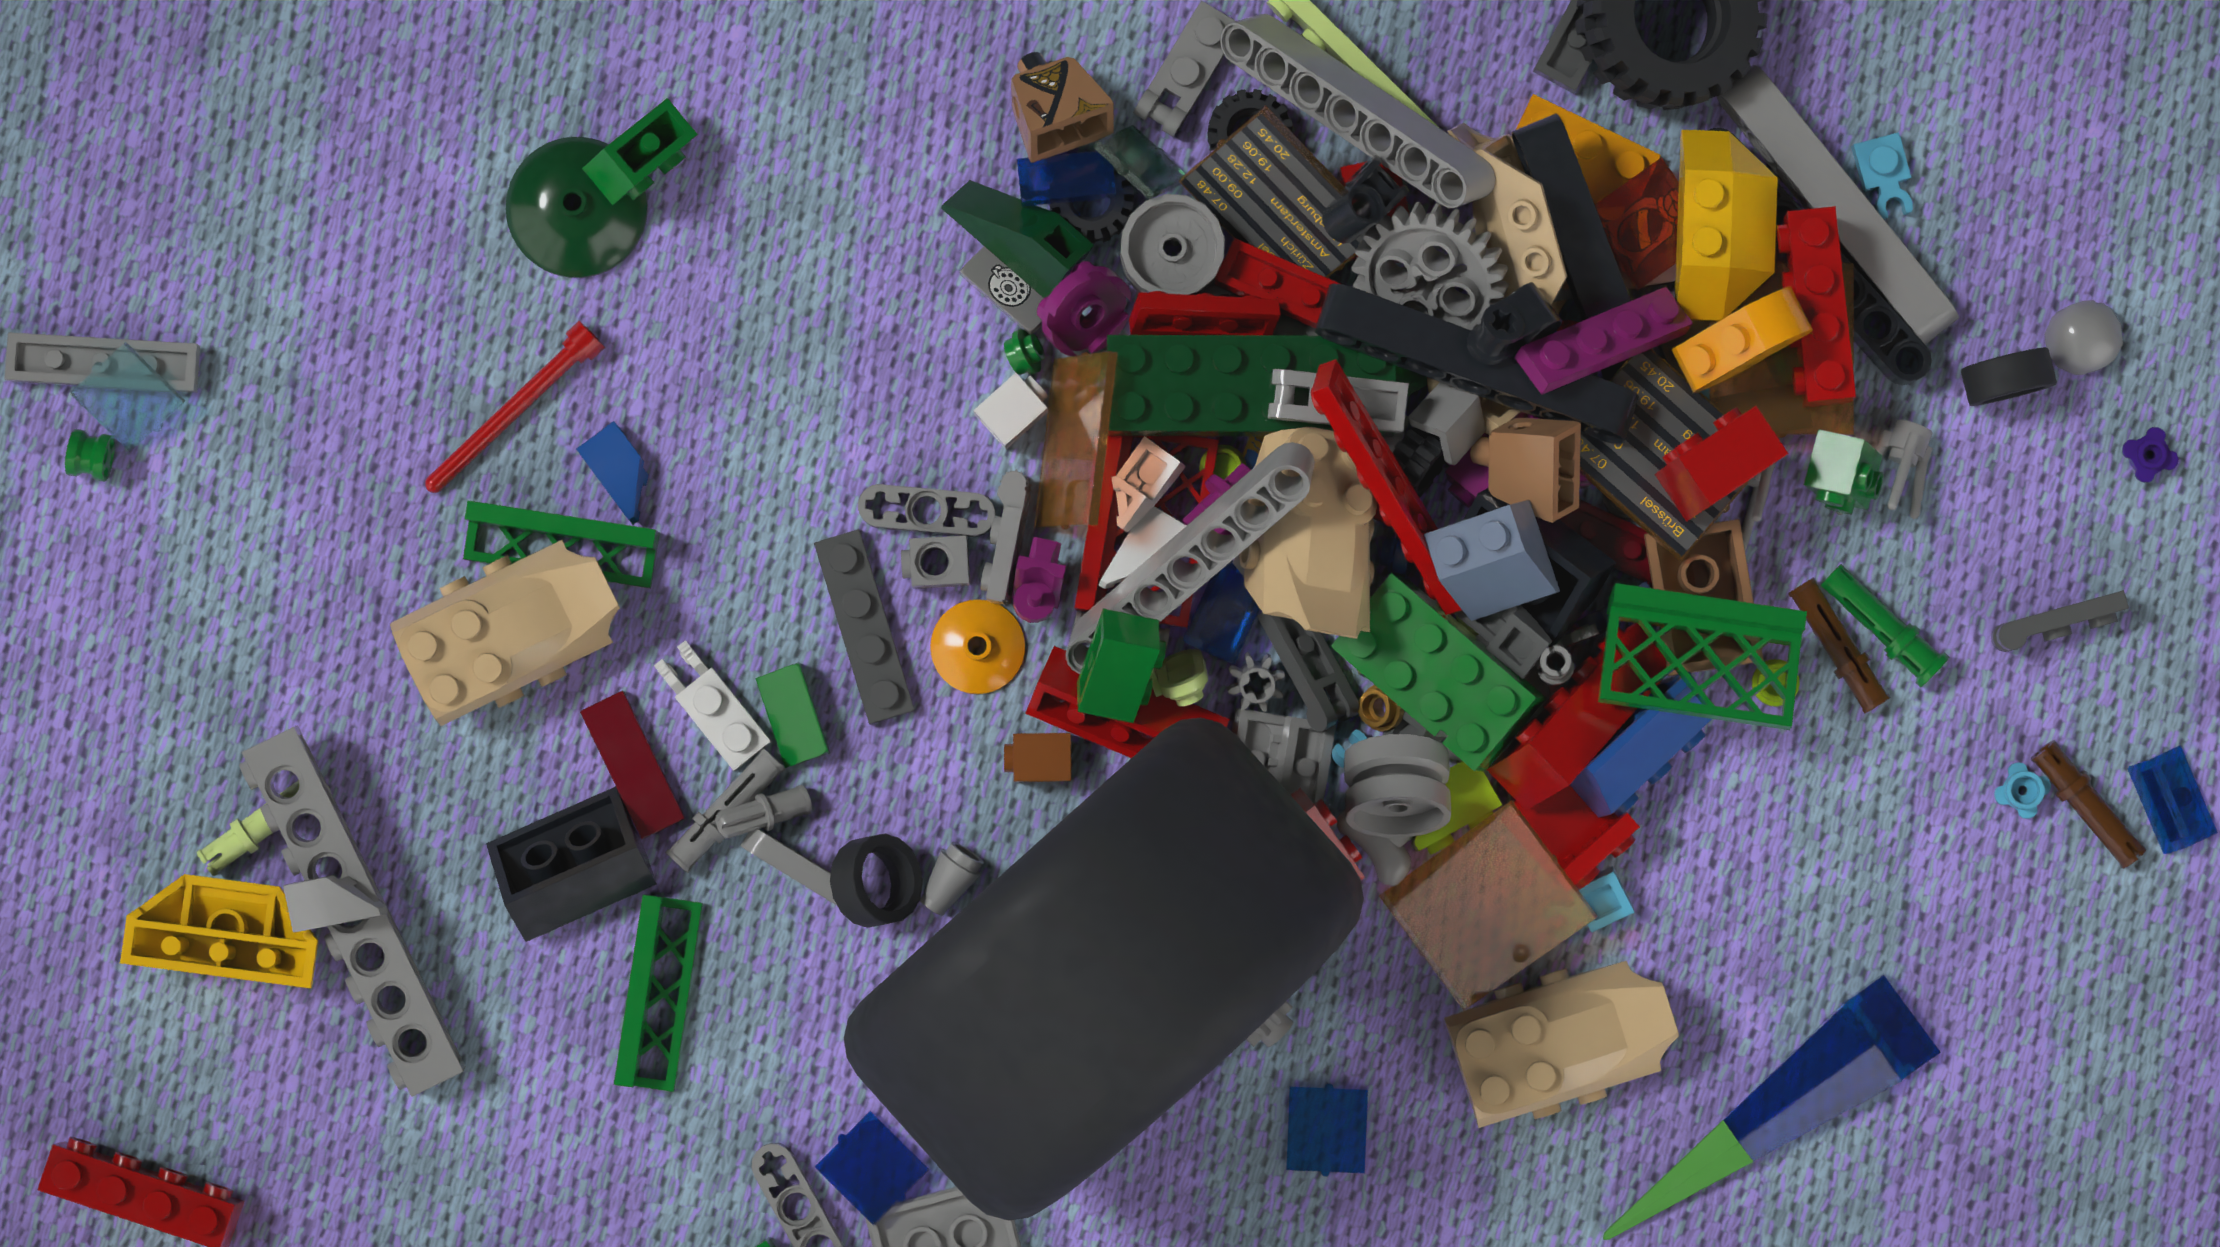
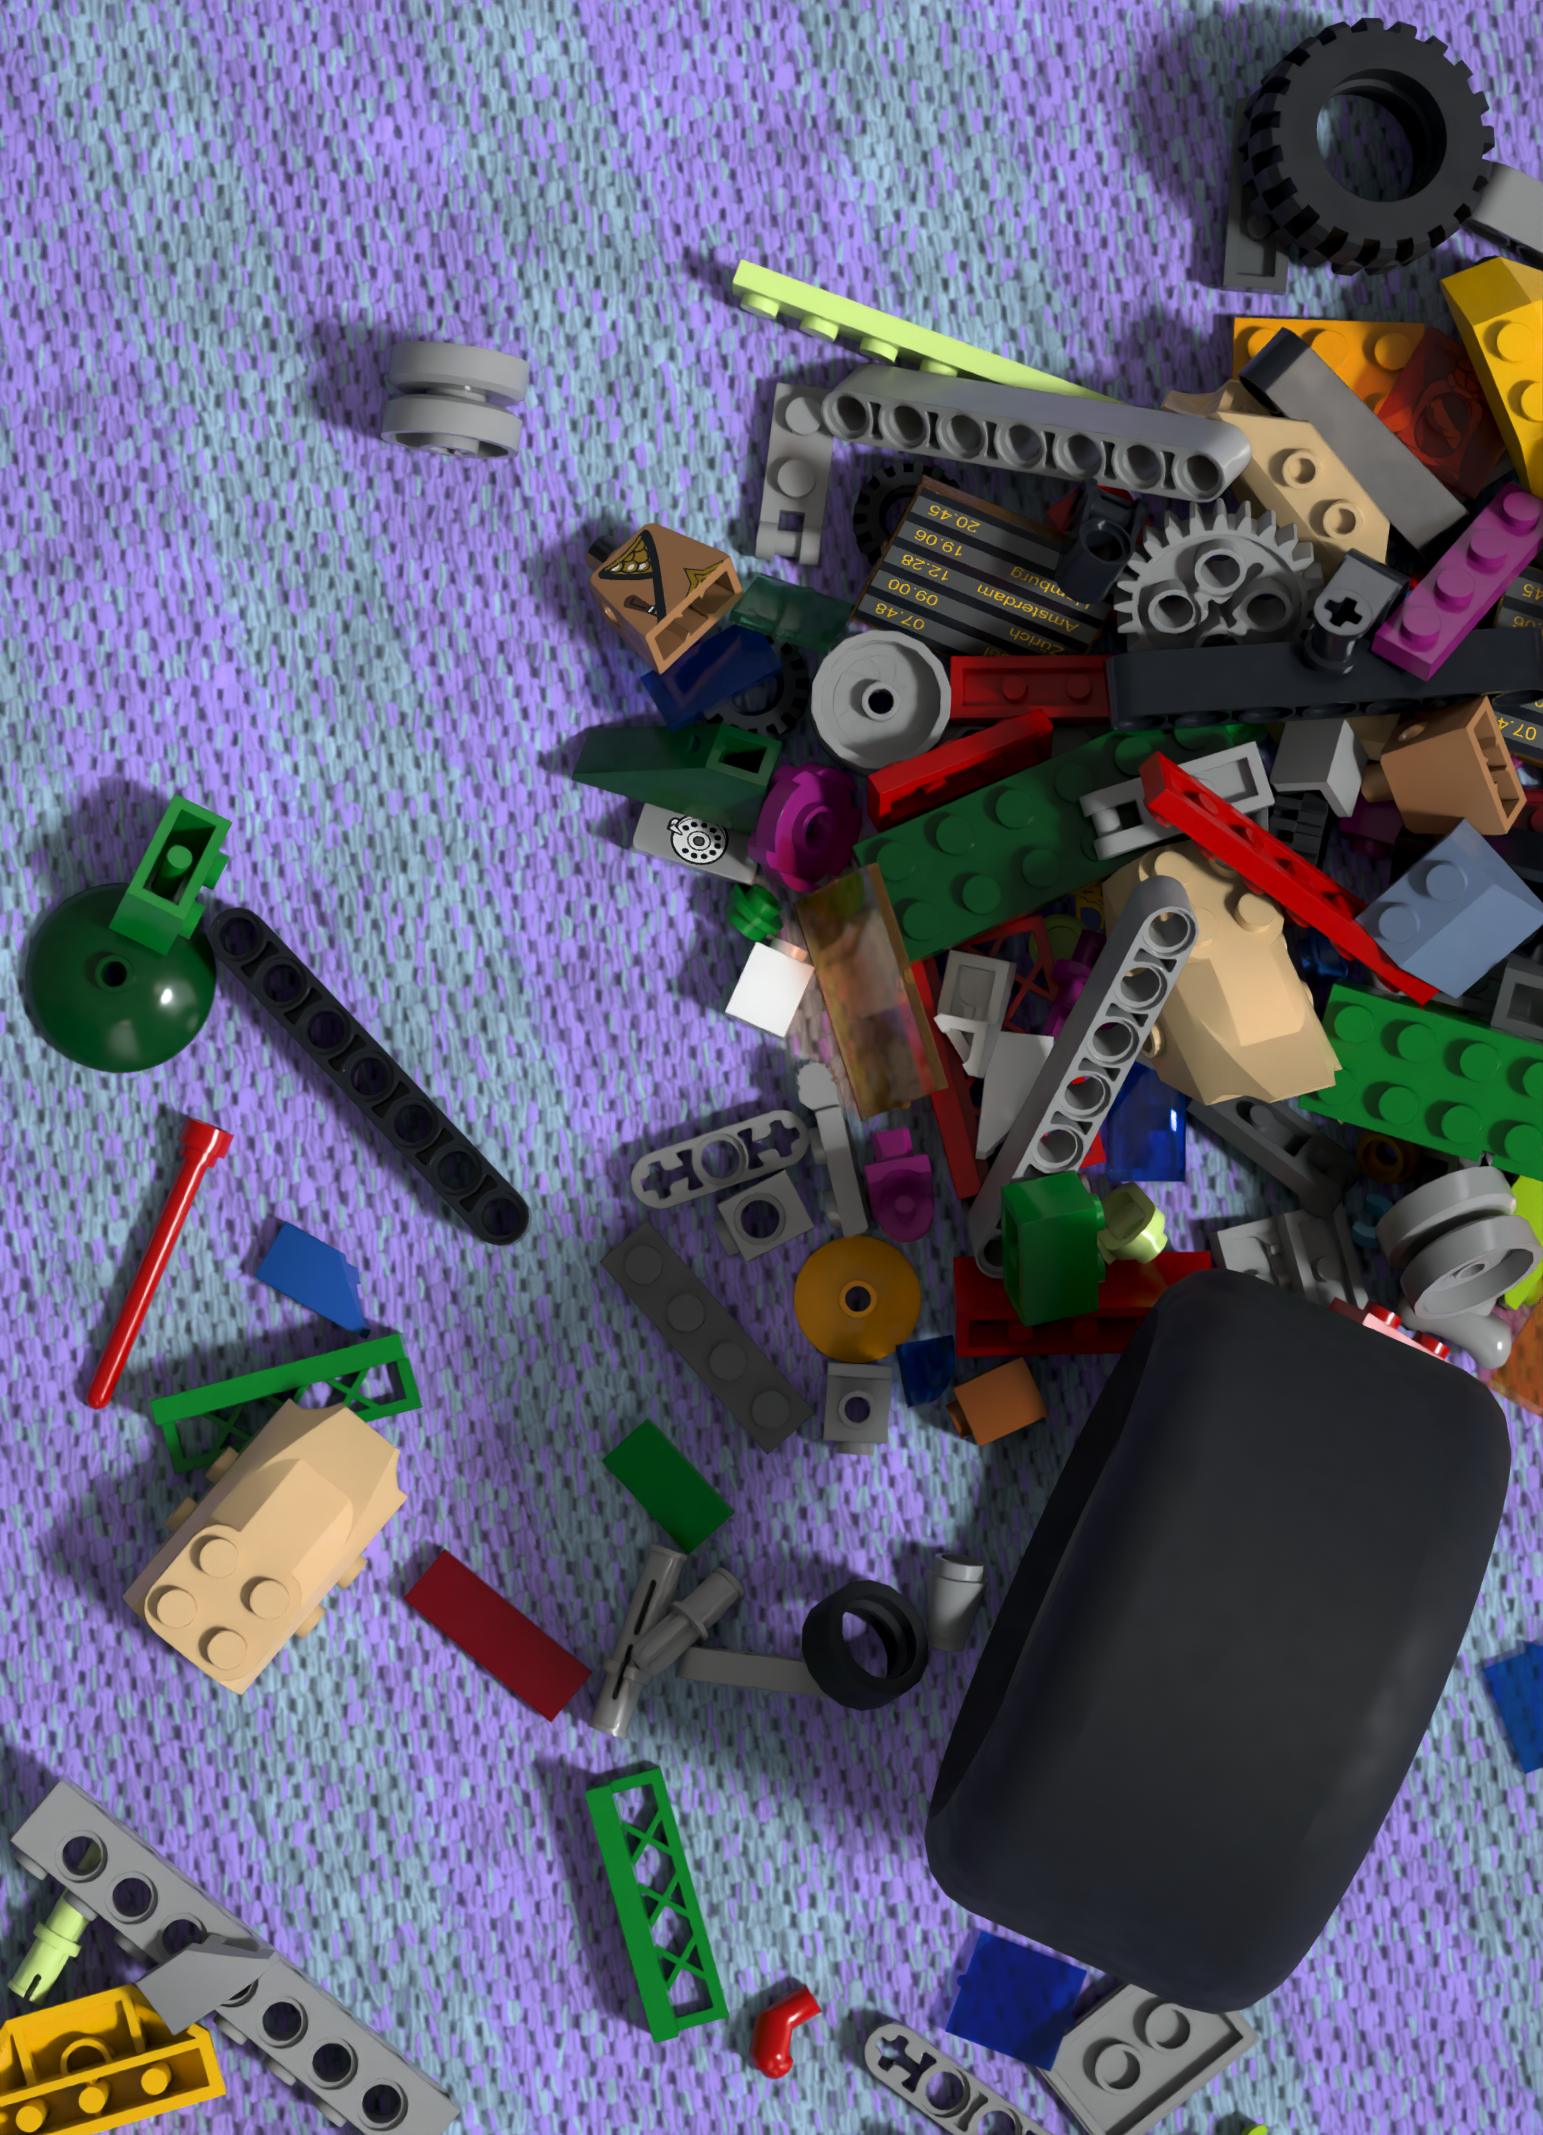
camera: 25 degrees left, 0 degrees up
(570, 864) = (476, 1793): black slope -> none
(698, 1115) = (774, 2029): none -> red arm
(699, 331) = (344, 1059): none -> black beam
(716, 710) = (570, 1522): white hinge -> none
(958, 704) = (851, 1381): none -> light grey brick
(1002, 713) = (926, 1368): none -> clear blue tile
(1264, 672) = (1204, 1195): light grey gear -> none

